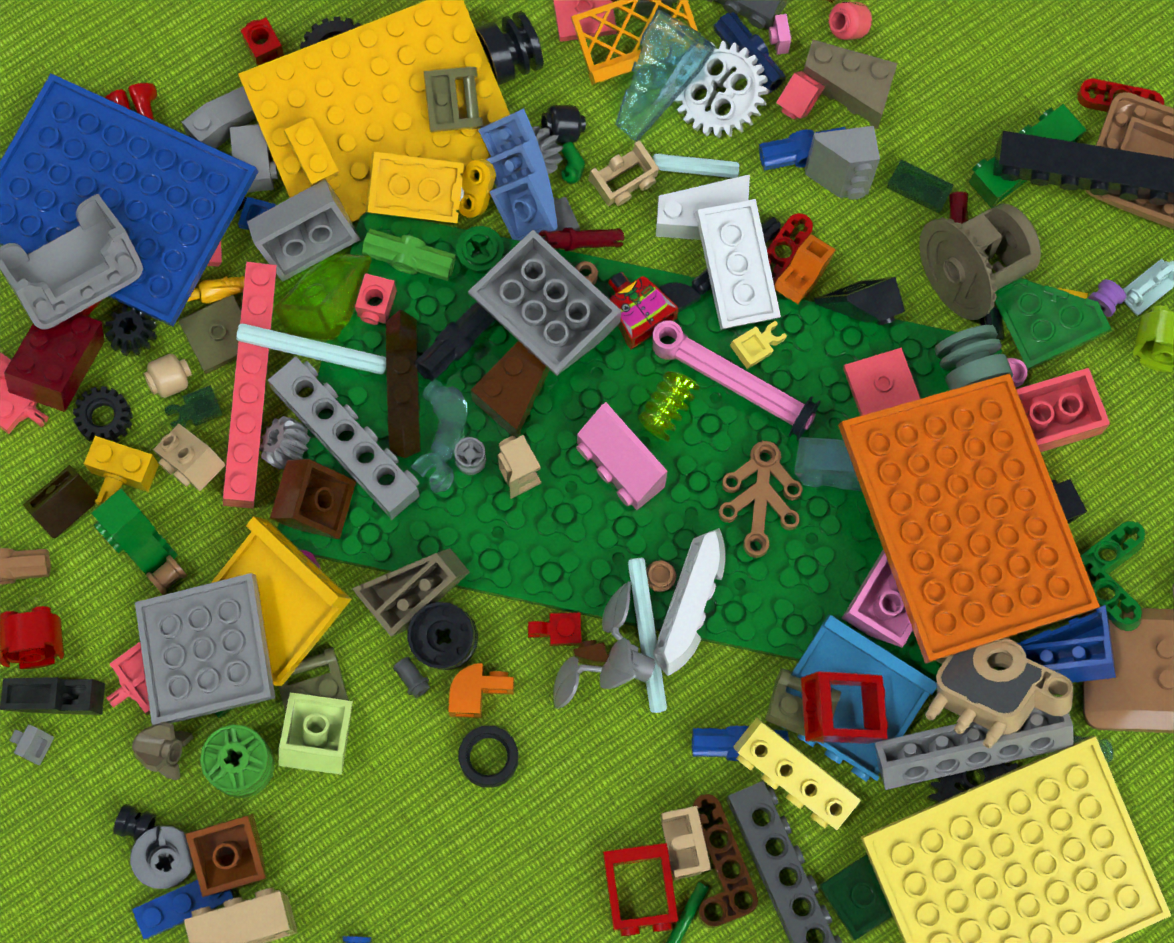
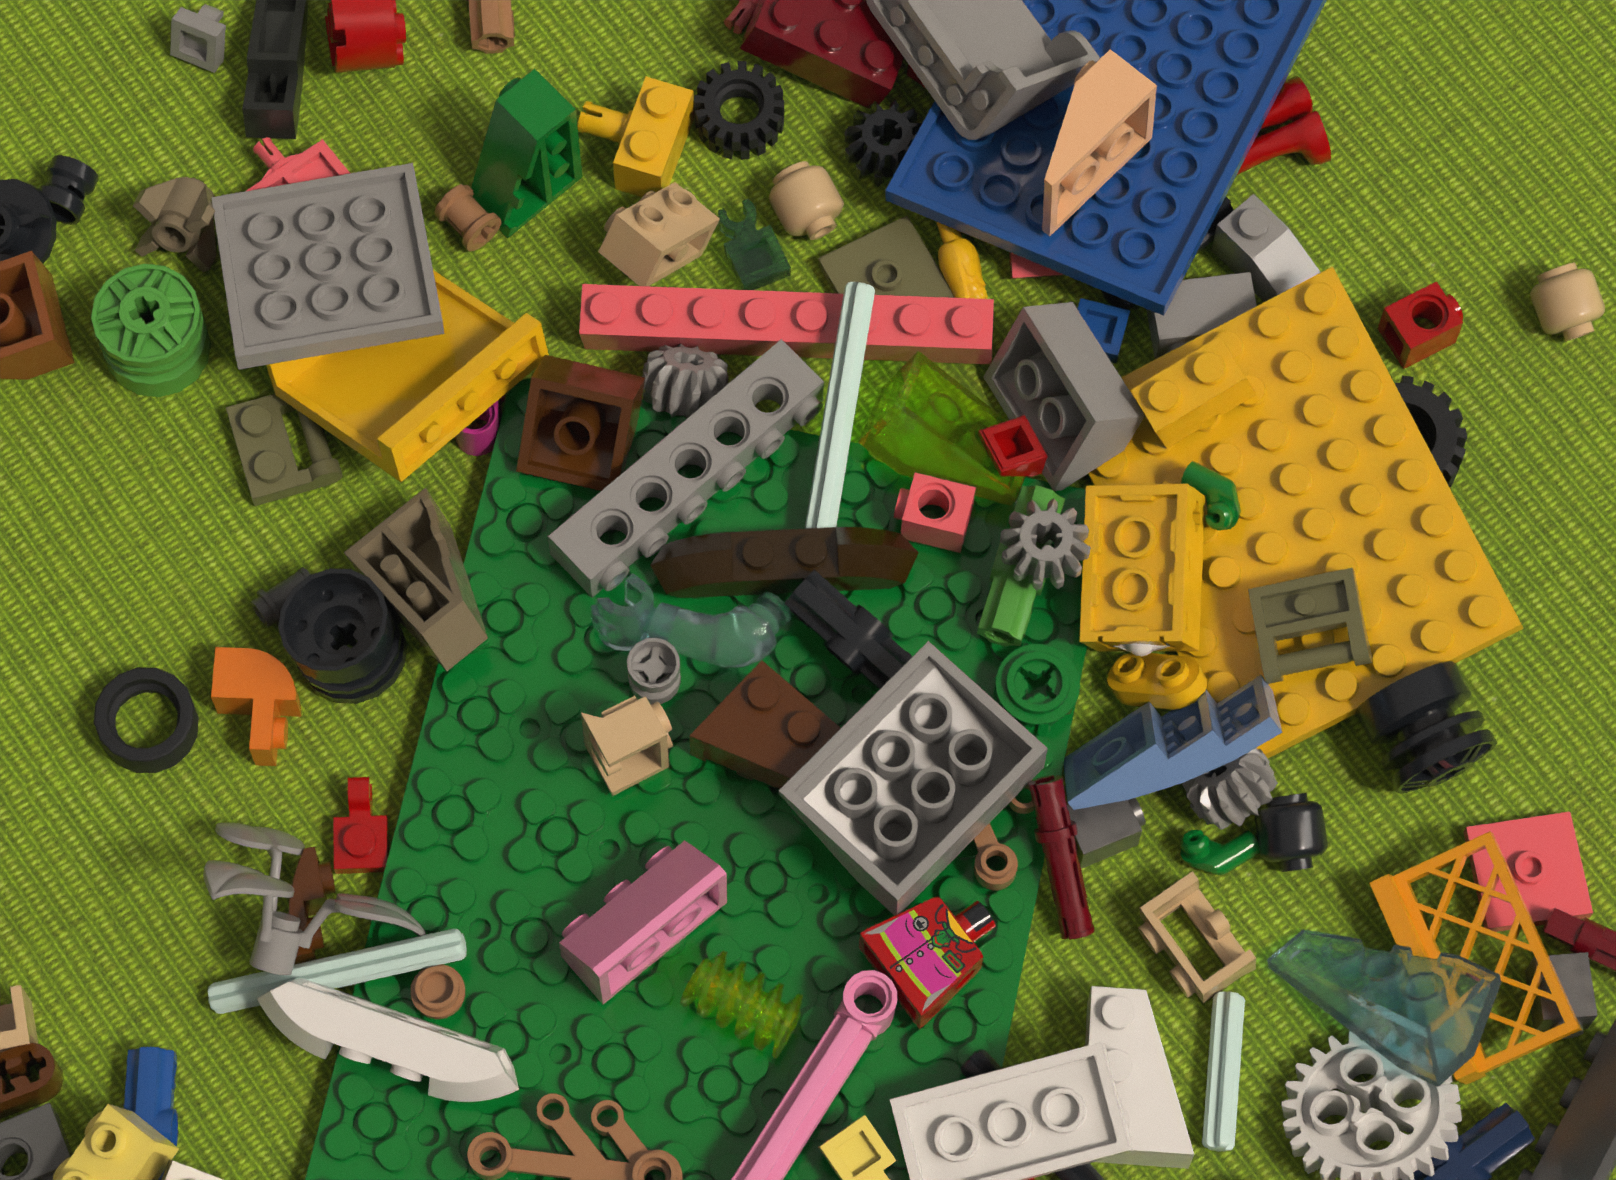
camera: 90 degrees right, 5 degrees down
(61, 501) = (594, 56): dark brown panel -> none
(148, 196) = (1101, 131): none -> light nougat slope
(315, 733) = (194, 446): yellowish green slope -> none
(335, 257) = (1014, 448): none -> red slope
(370, 144) = (1219, 493): none -> green arm
(404, 222) = (1048, 561): none -> light grey gear
(680, 294) = (957, 1029): black tile -> none

